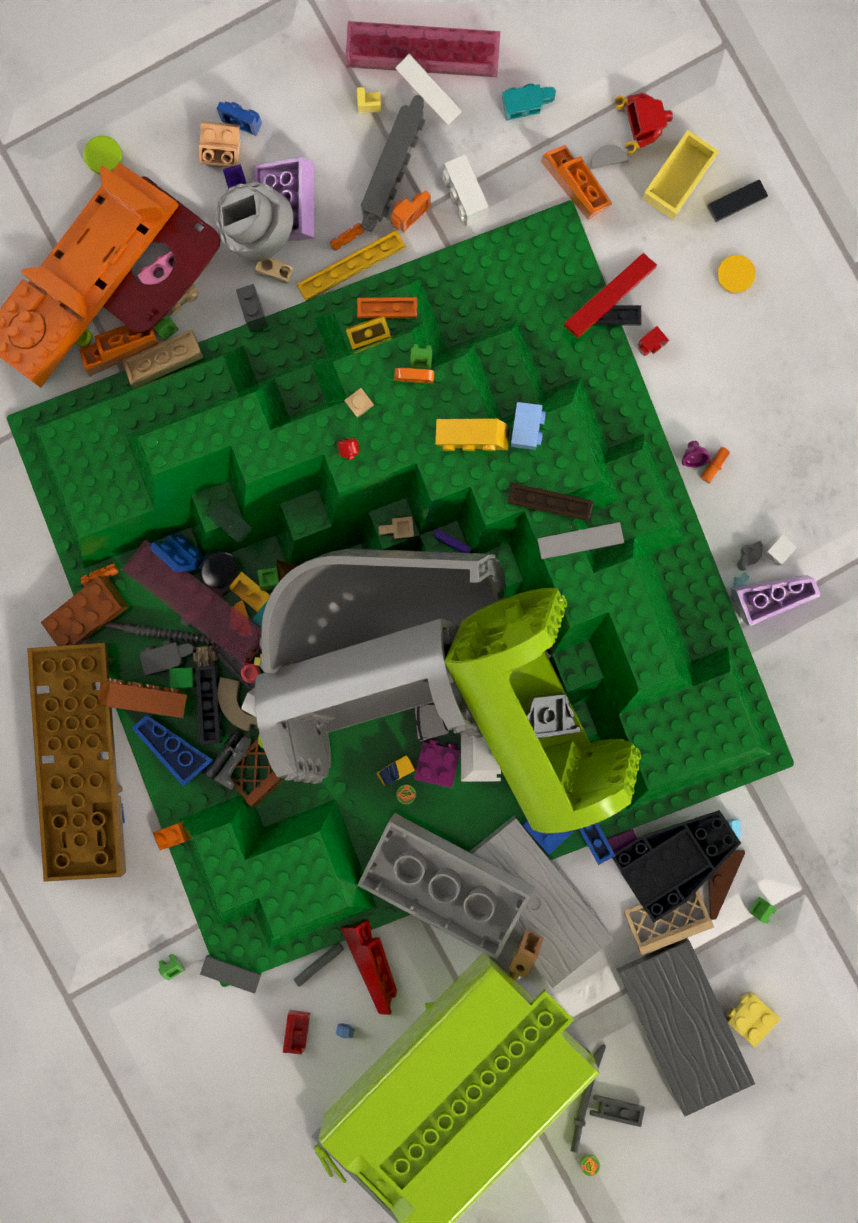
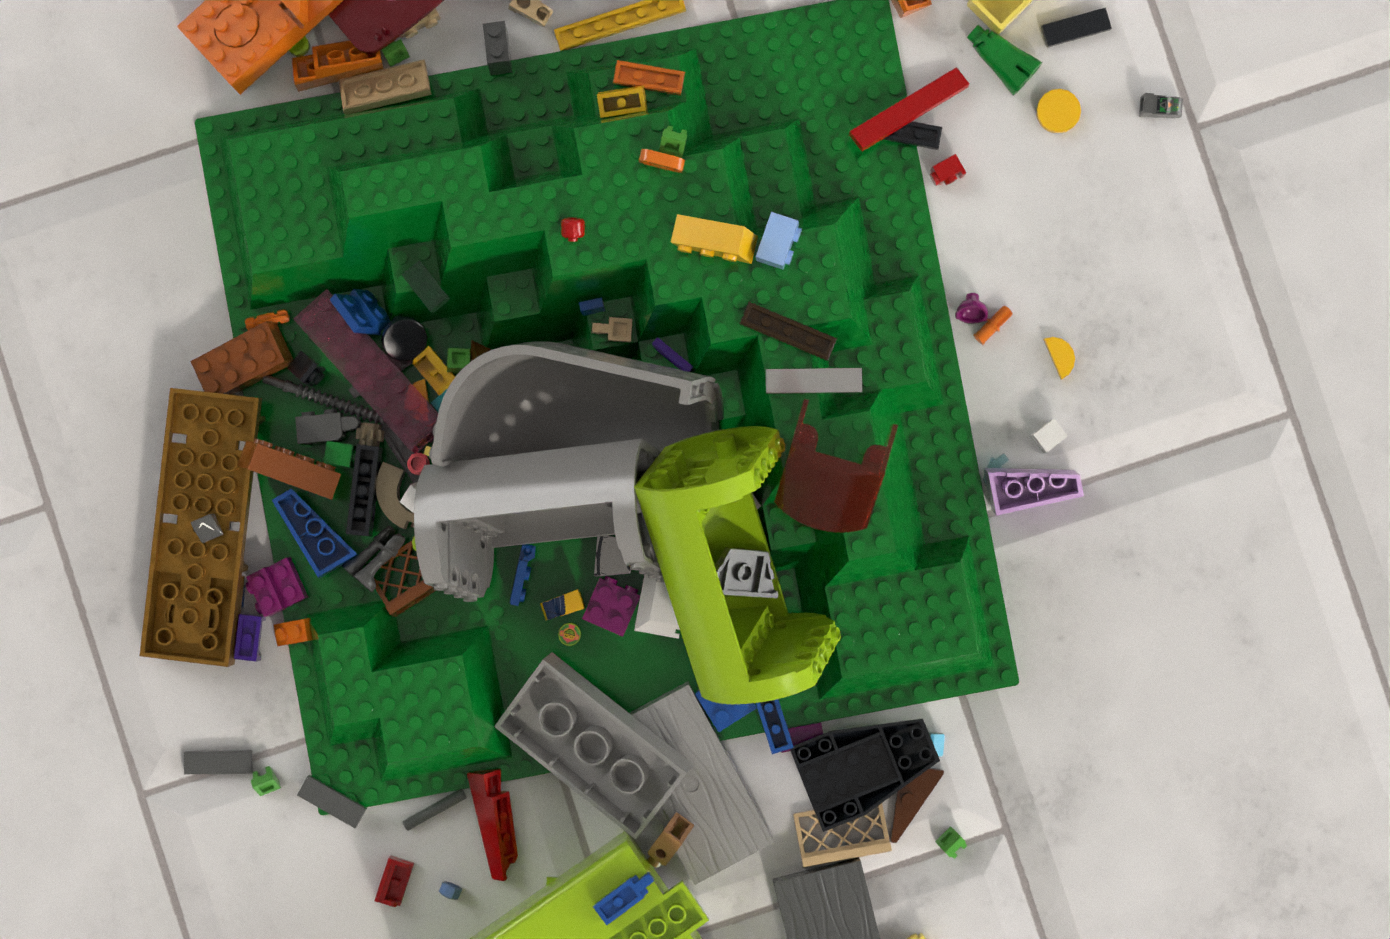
camera: 10 degrees right, 0 degrees up
(81, 762) = (207, 528): none -> dark grey slope
(127, 958) = (218, 762): none -> dark grey tile
(134, 847) = (248, 637): none -> dark purple panel
(141, 610) = (307, 369): none -> black slope
(149, 801) = (276, 587): none -> magenta plate
(356, 749) = (522, 573): none -> blue hinge
(359, 403) = (594, 179): tan plate -> none
(375, 512) = (592, 306): none -> blue tile
(497, 1014) = (623, 897): none -> blue hinge
(609, 632) = (830, 490): none -> clear red windscreen
(685, 239) = (1007, 61): none -> green piece
(750, 555) = (1013, 435): dark grey piece -> none
(777, 479) = (1061, 355): none -> yellow tile
(821, 254) = (1160, 106): none -> dark grey leg

